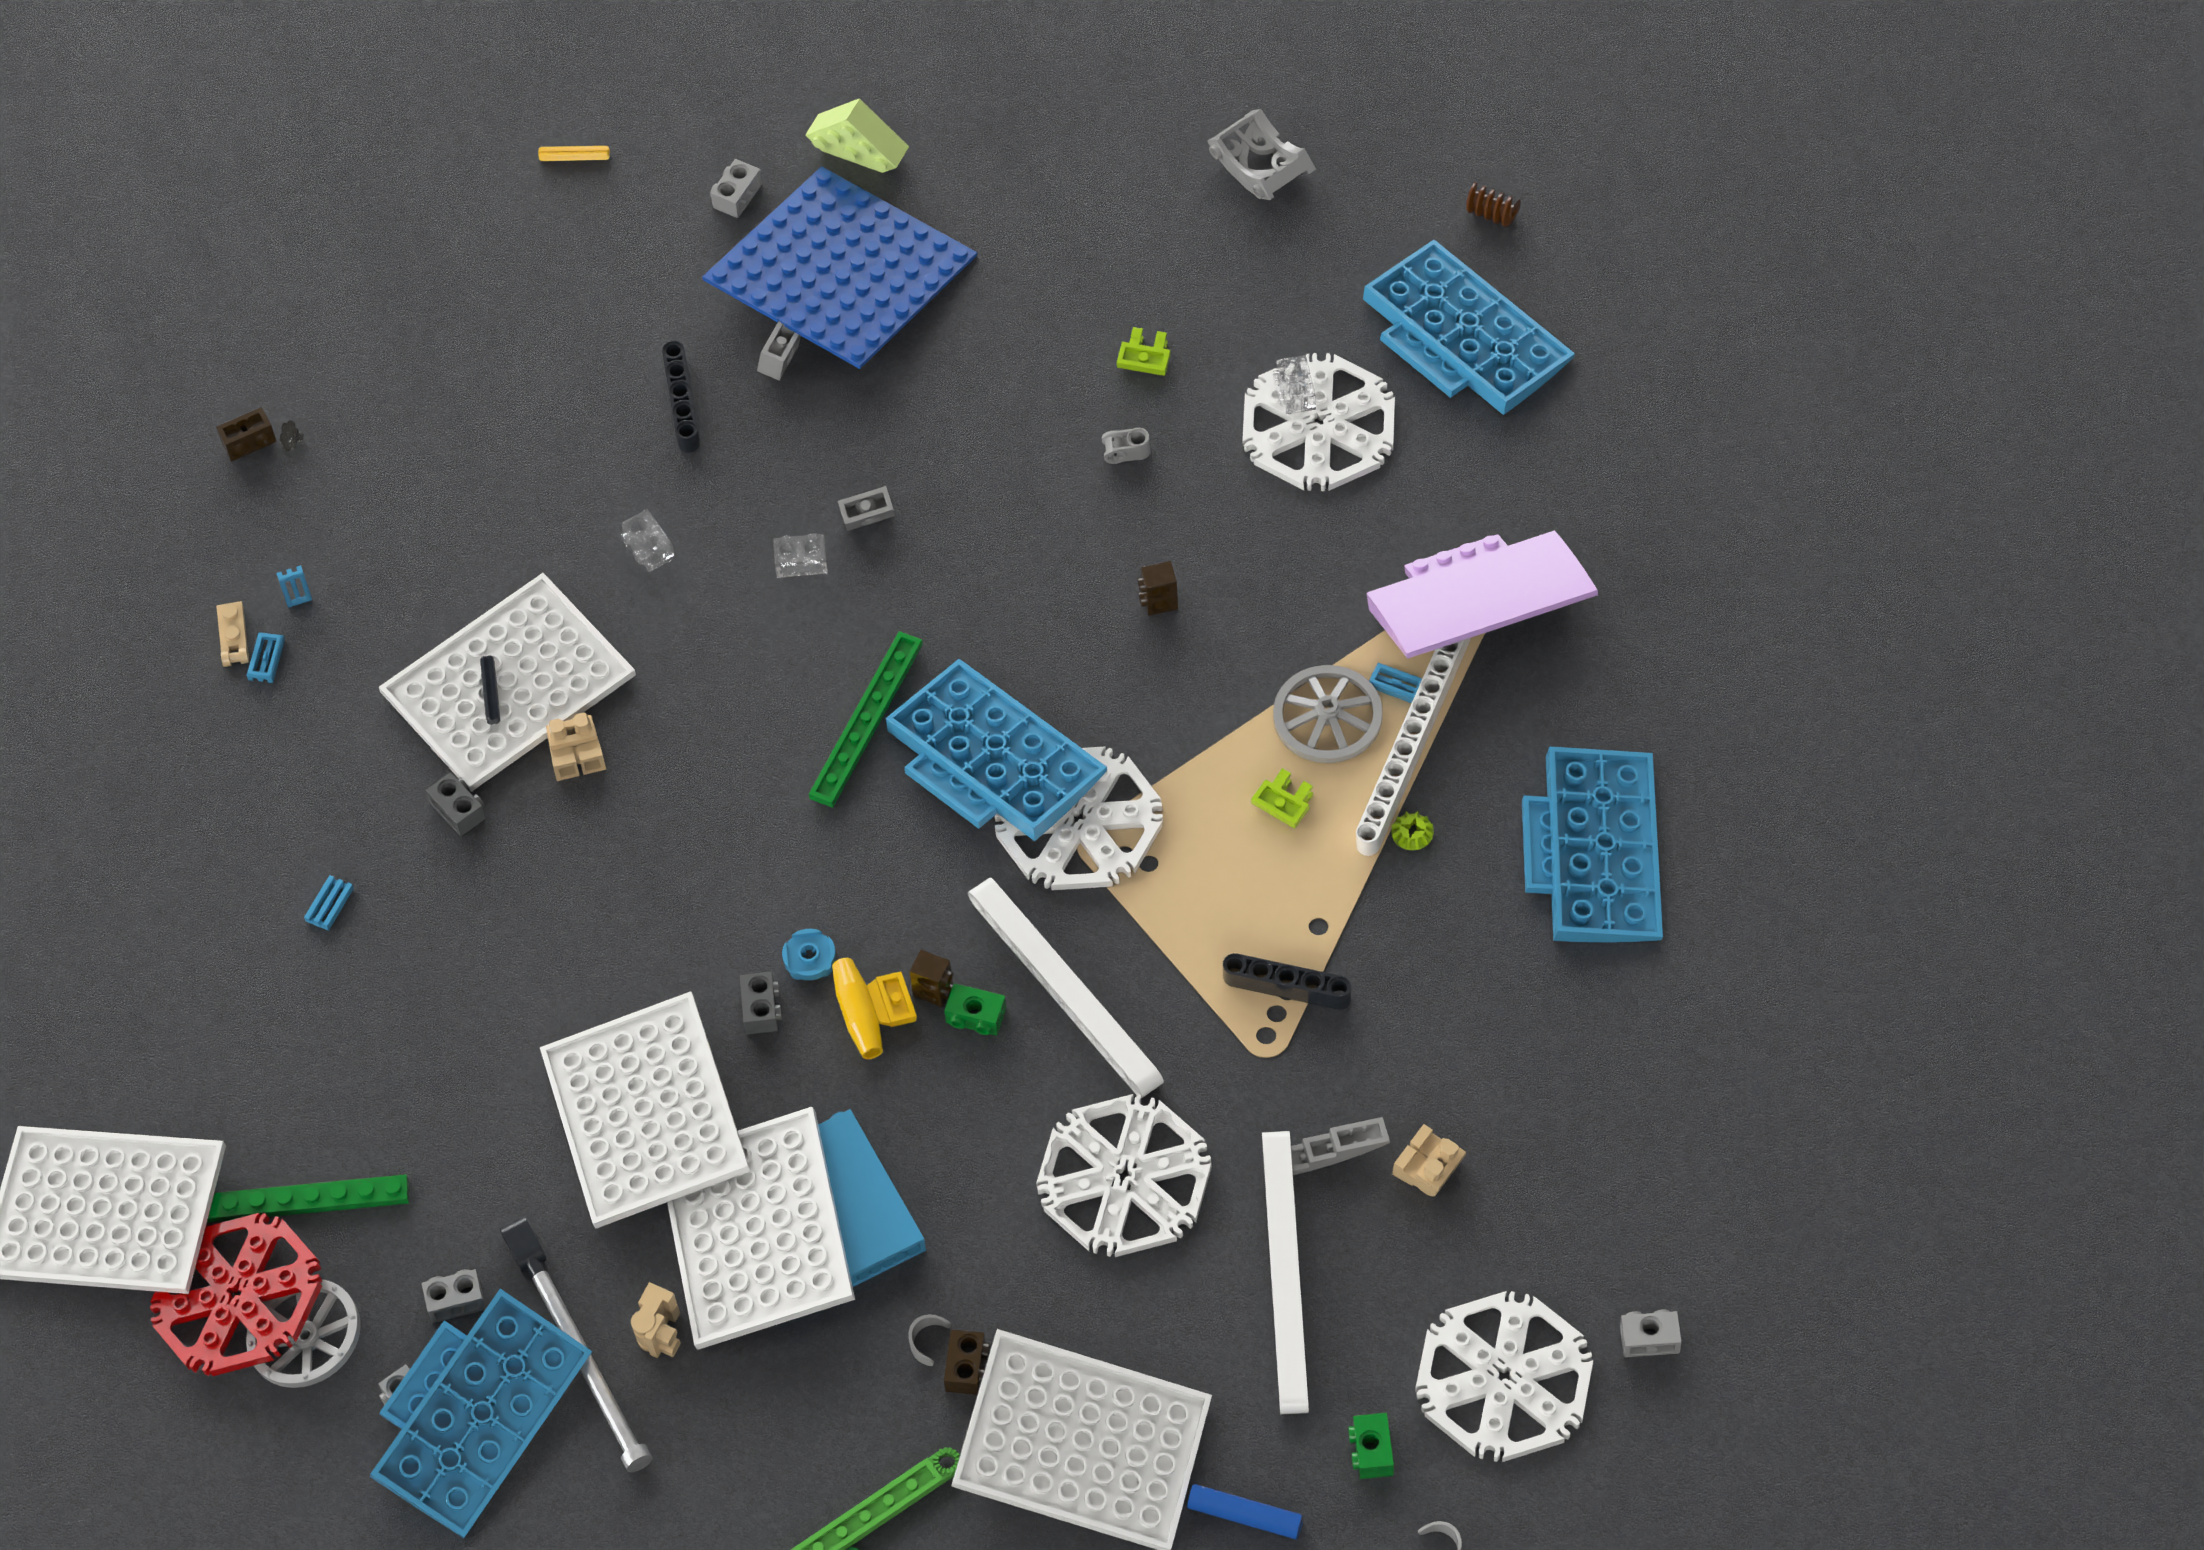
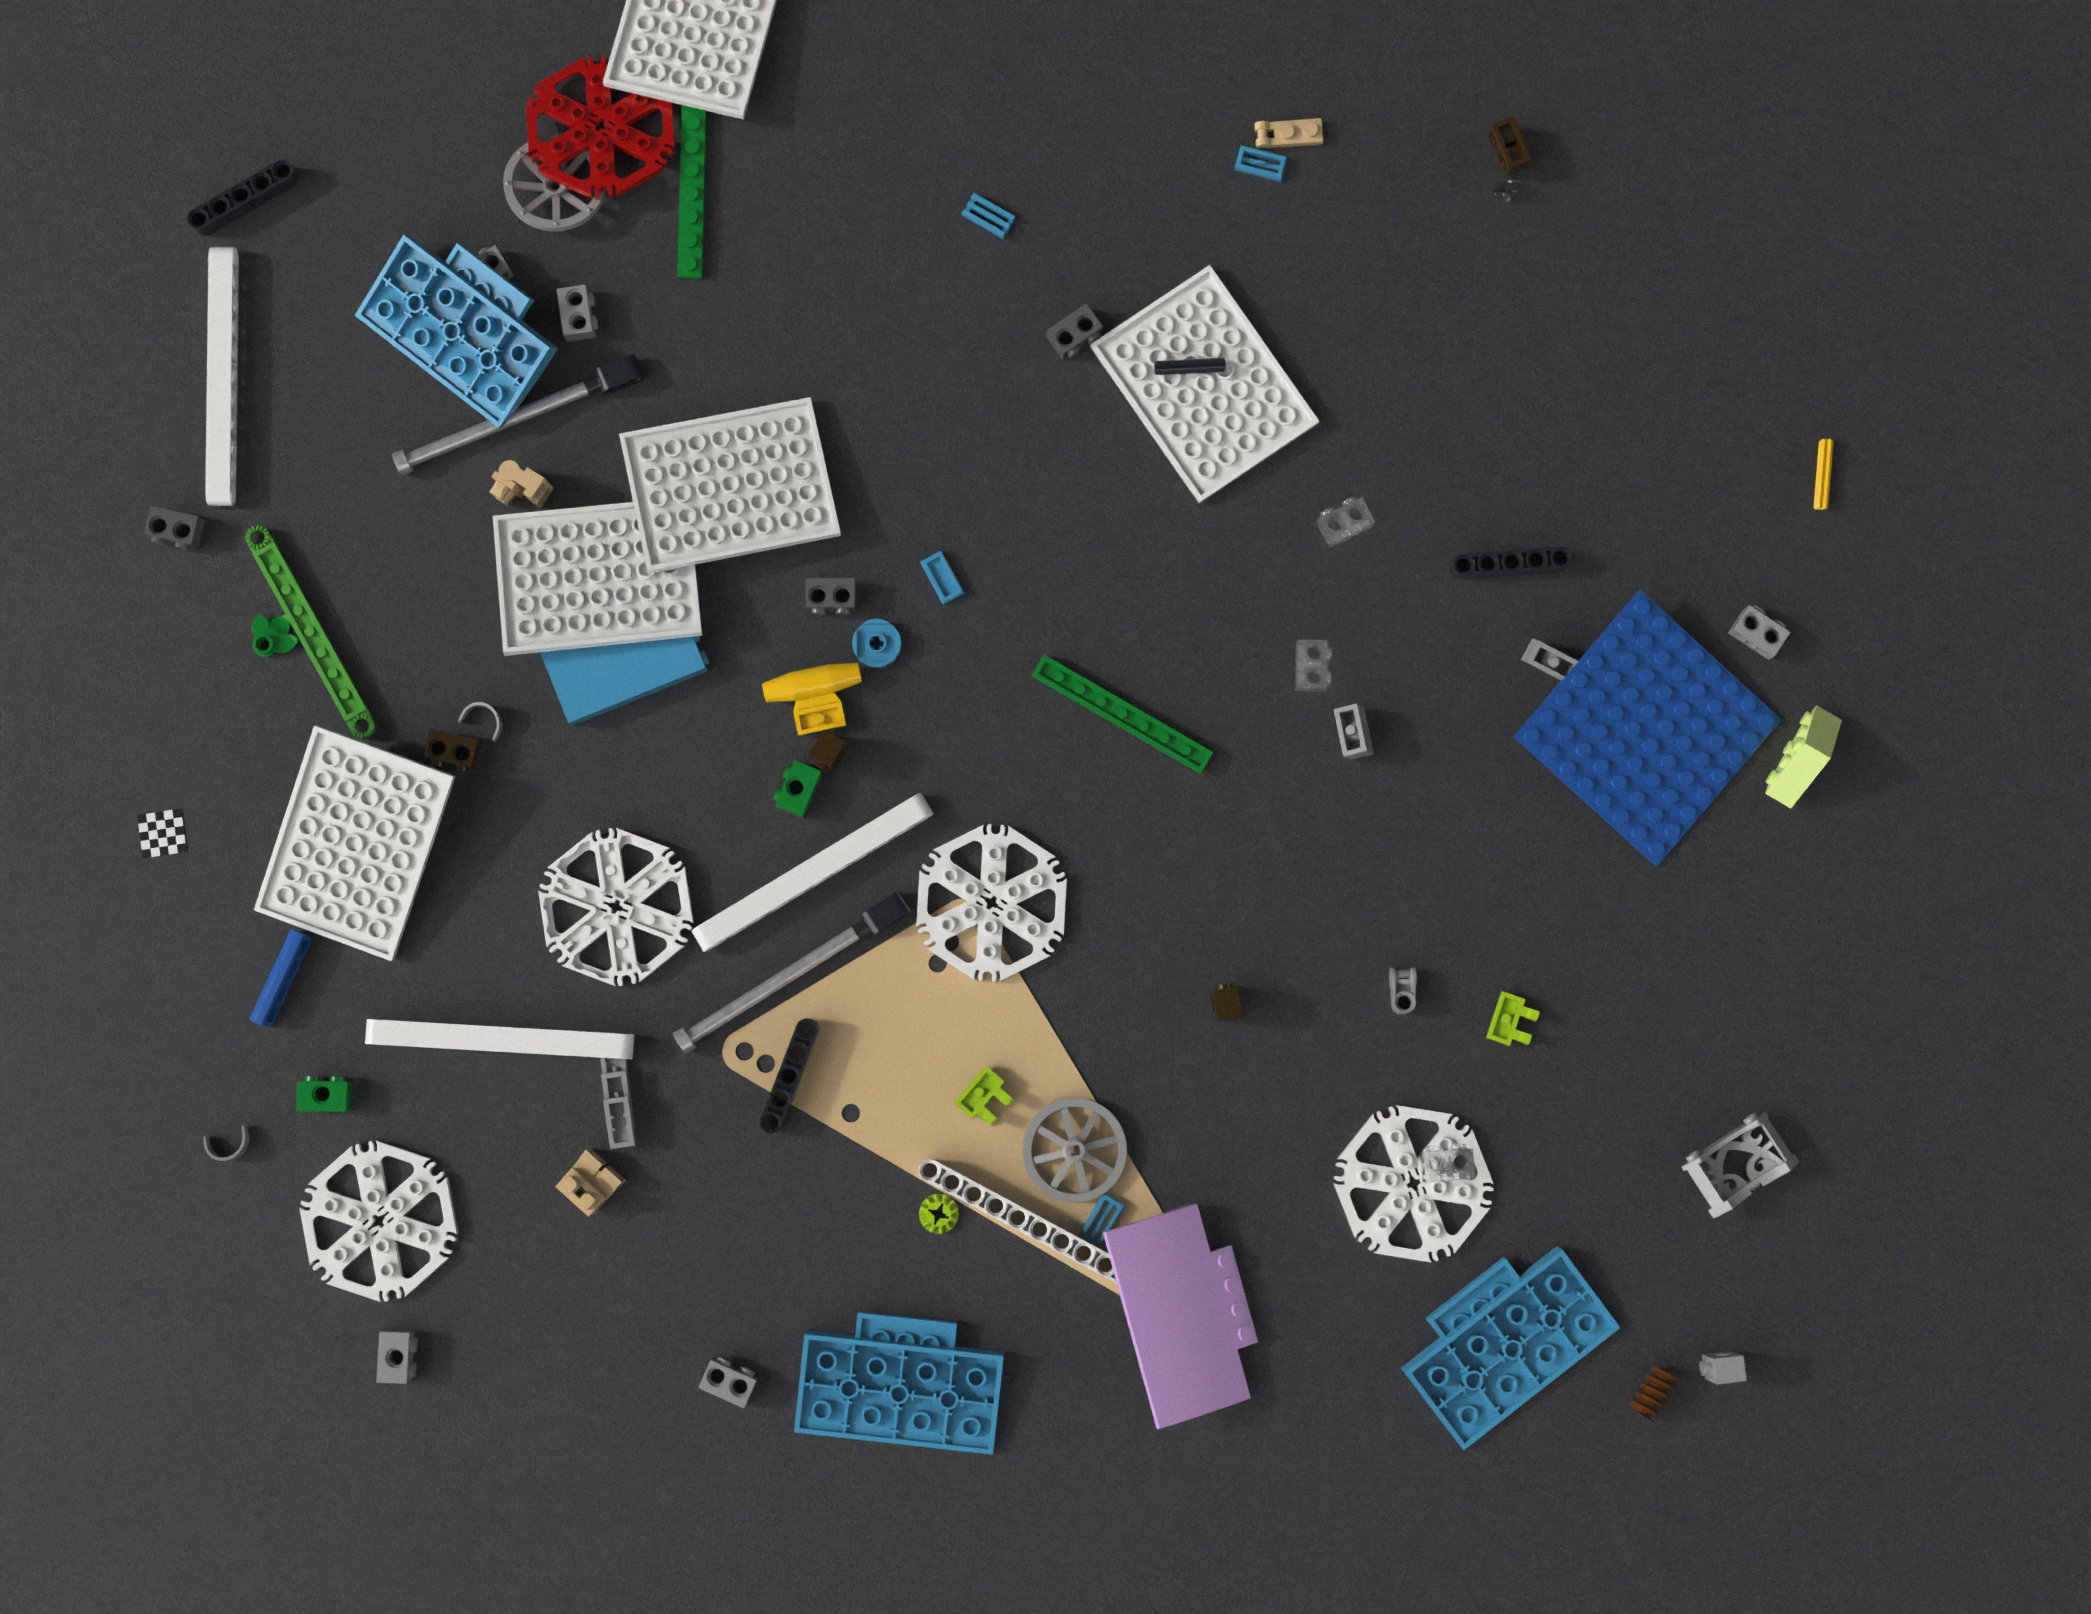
camera: 90 degrees right, 25 degrees up
(291, 576) = (1324, 188): dark azure tile -> none
(573, 744) = (1131, 451): tan hips -> none
(731, 903) = (942, 577): none -> dark azure tile
(991, 753) = (1065, 827): dark azure slope -> none
(1110, 920) = (873, 921): none -> flat silver piece
(1457, 148) = (1723, 1367): none -> light grey brick
(1624, 1003) = (726, 1388): none -> light grey brick

